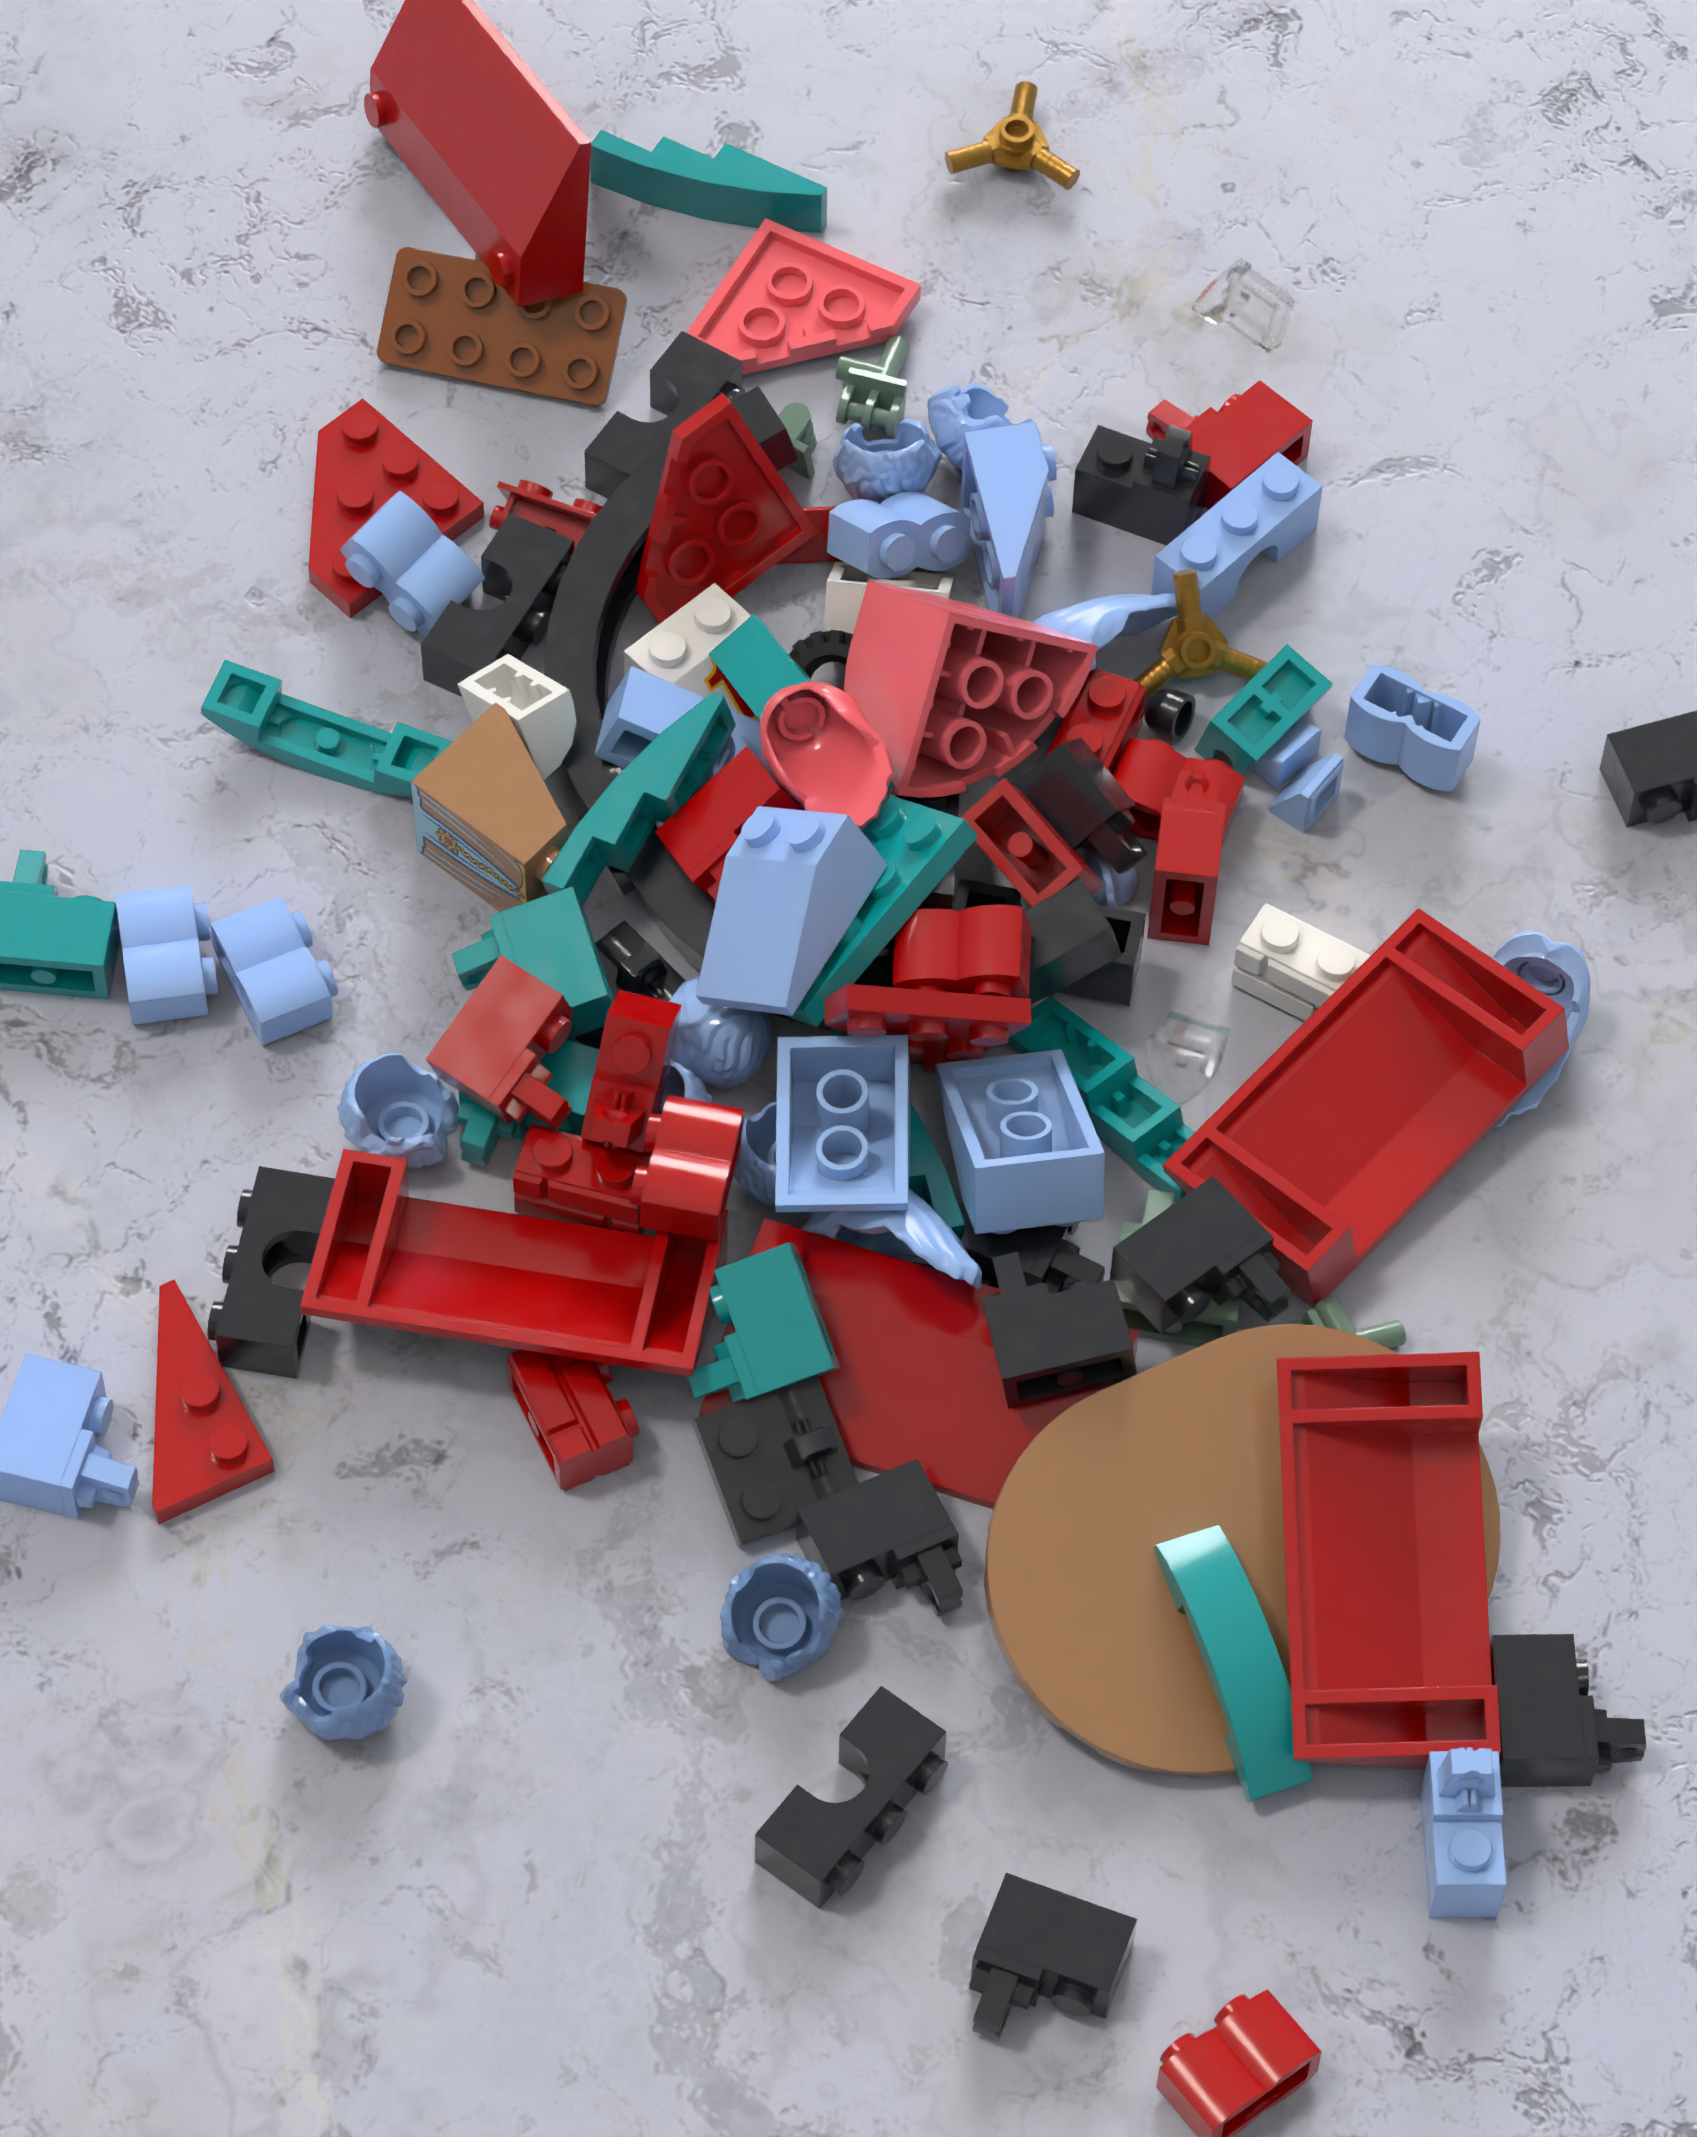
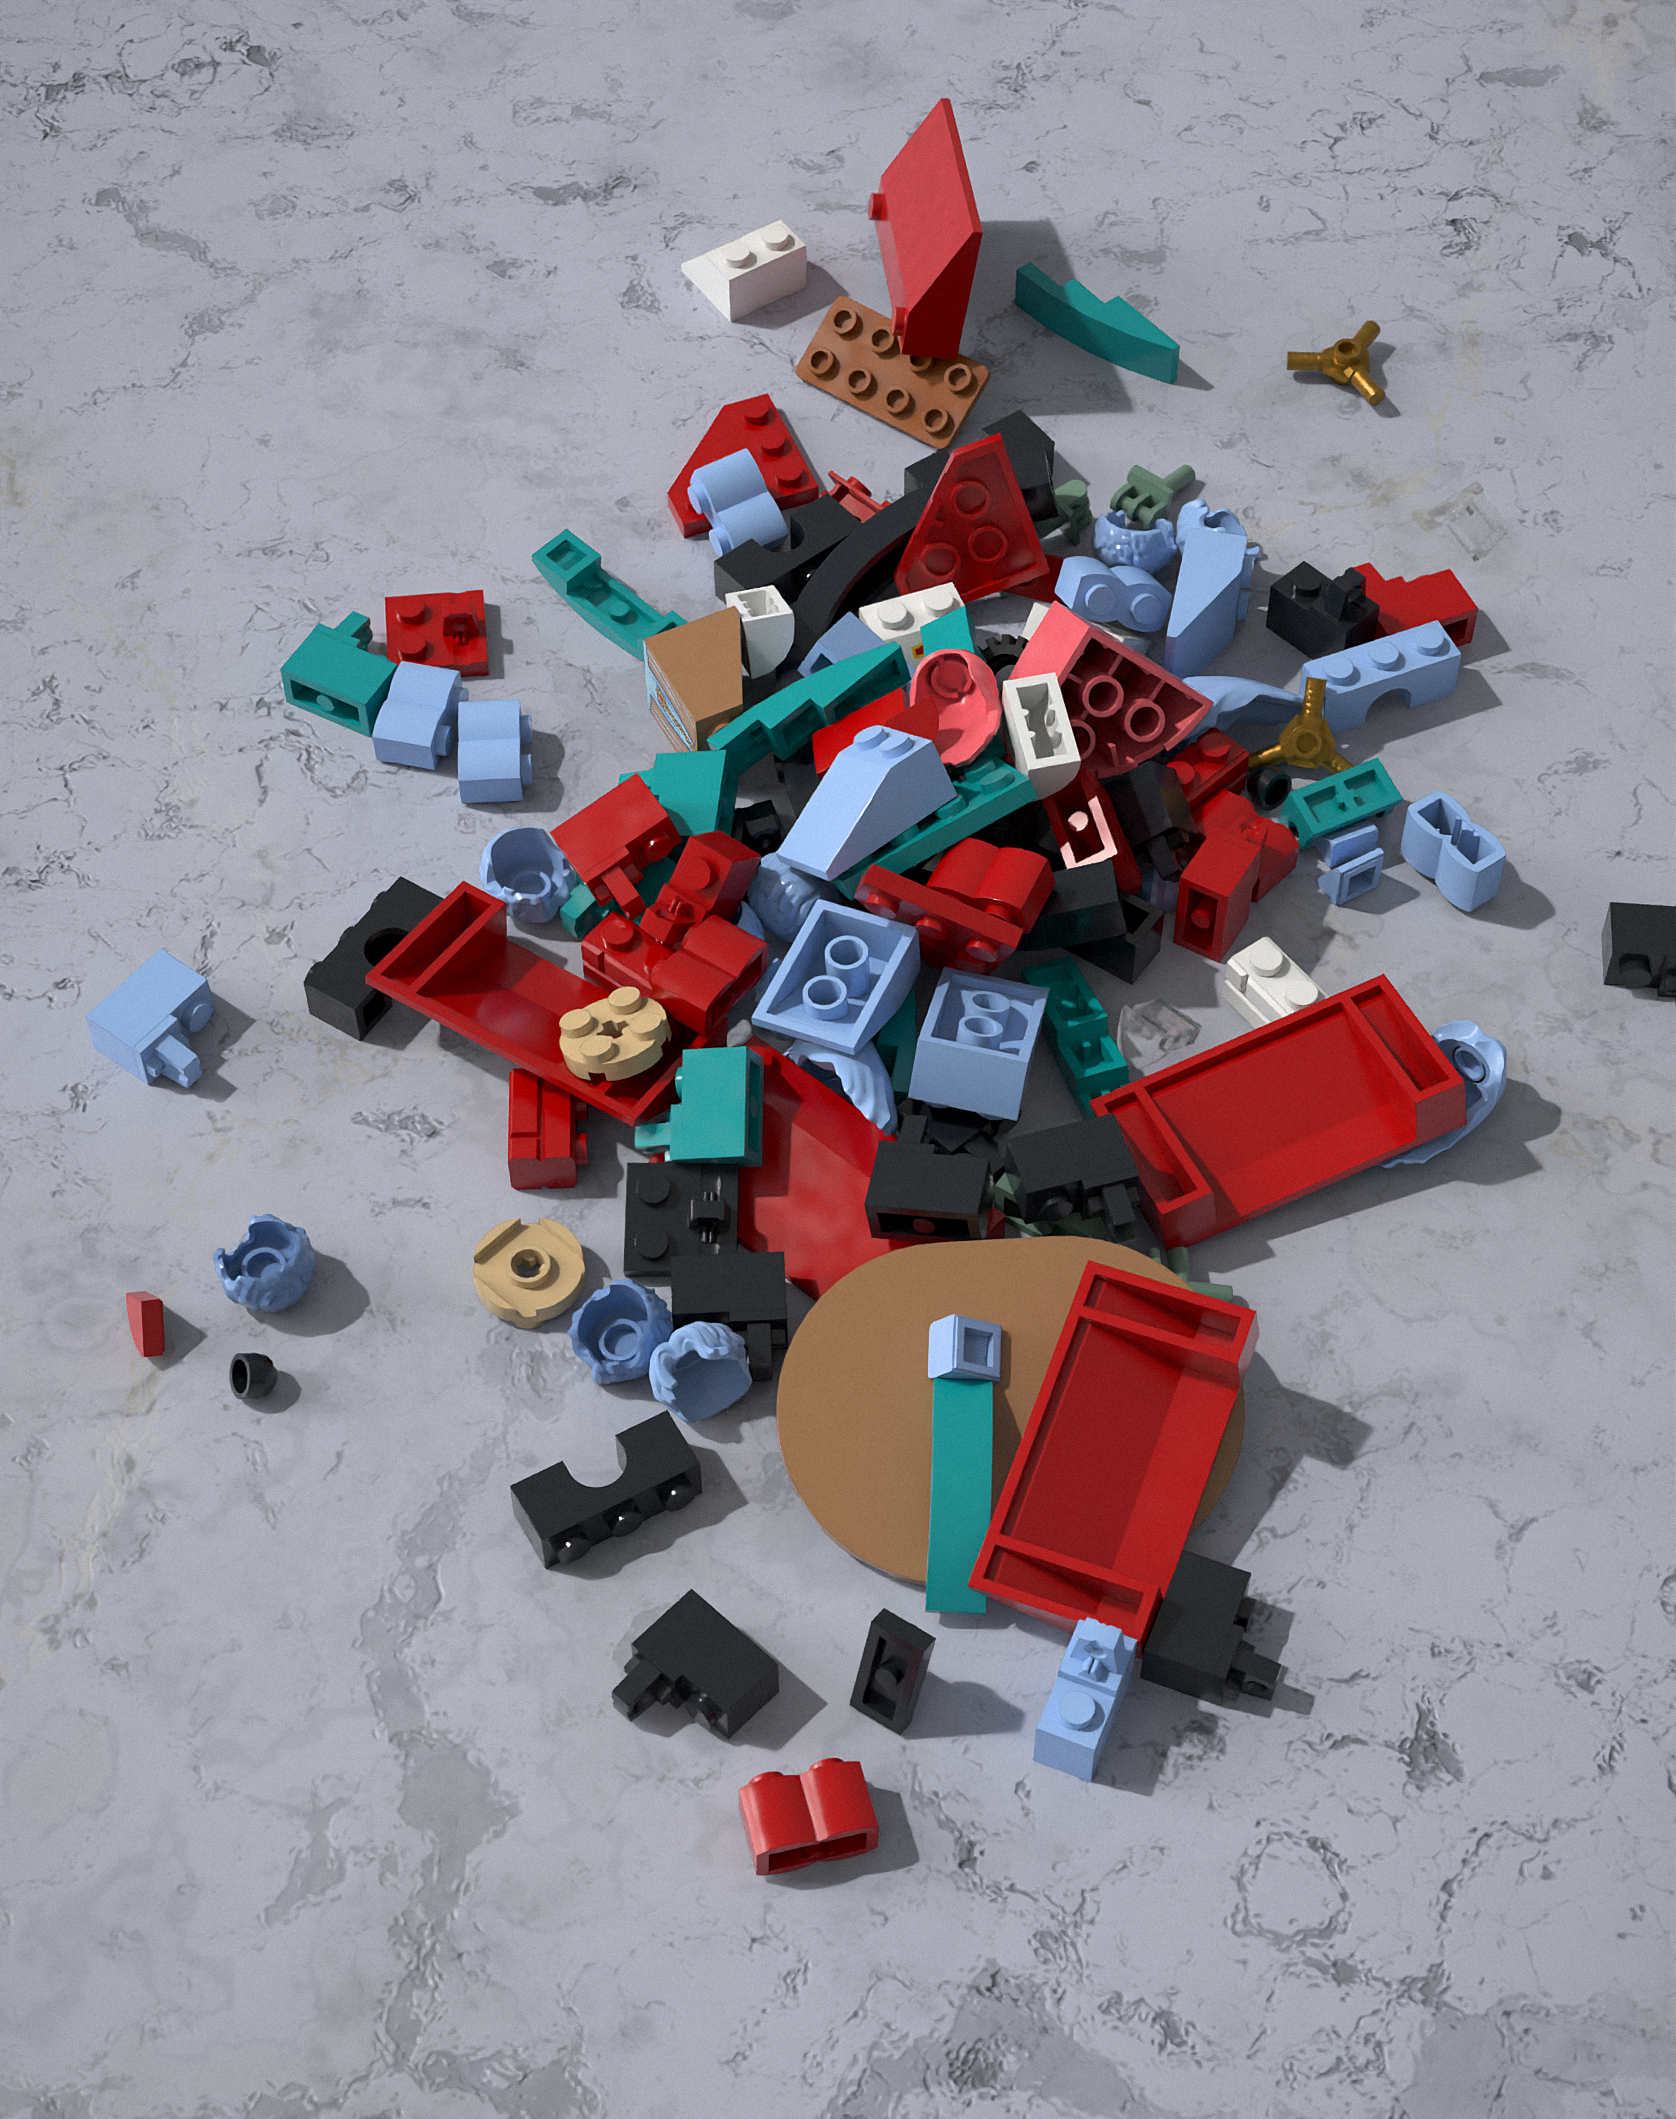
camera: 25 degrees right, 5 degrees down
(124, 839) = (439, 631): none -> red hinge
(201, 1427) = (270, 1048): red wing -> none
(237, 1799) = (146, 1322): none -> red tile
(256, 236) = (751, 270): none -> white slope
(382, 1809) = (252, 1375): none -> black hinge
(613, 1249) = (590, 1031): none -> tan plate
(641, 1617) = (535, 1298): none -> tan plate
(798, 788) = (918, 720): none -> red tile
(801, 302) = (1126, 421): coral plate -> none
(891, 1627) = (700, 1370): none -> light blue hair
(940, 755) = (1039, 732): none -> white brick
(1174, 1502) = (964, 1349): none -> light blue slope
(1258, 1881) = (892, 1671): none -> black hinge

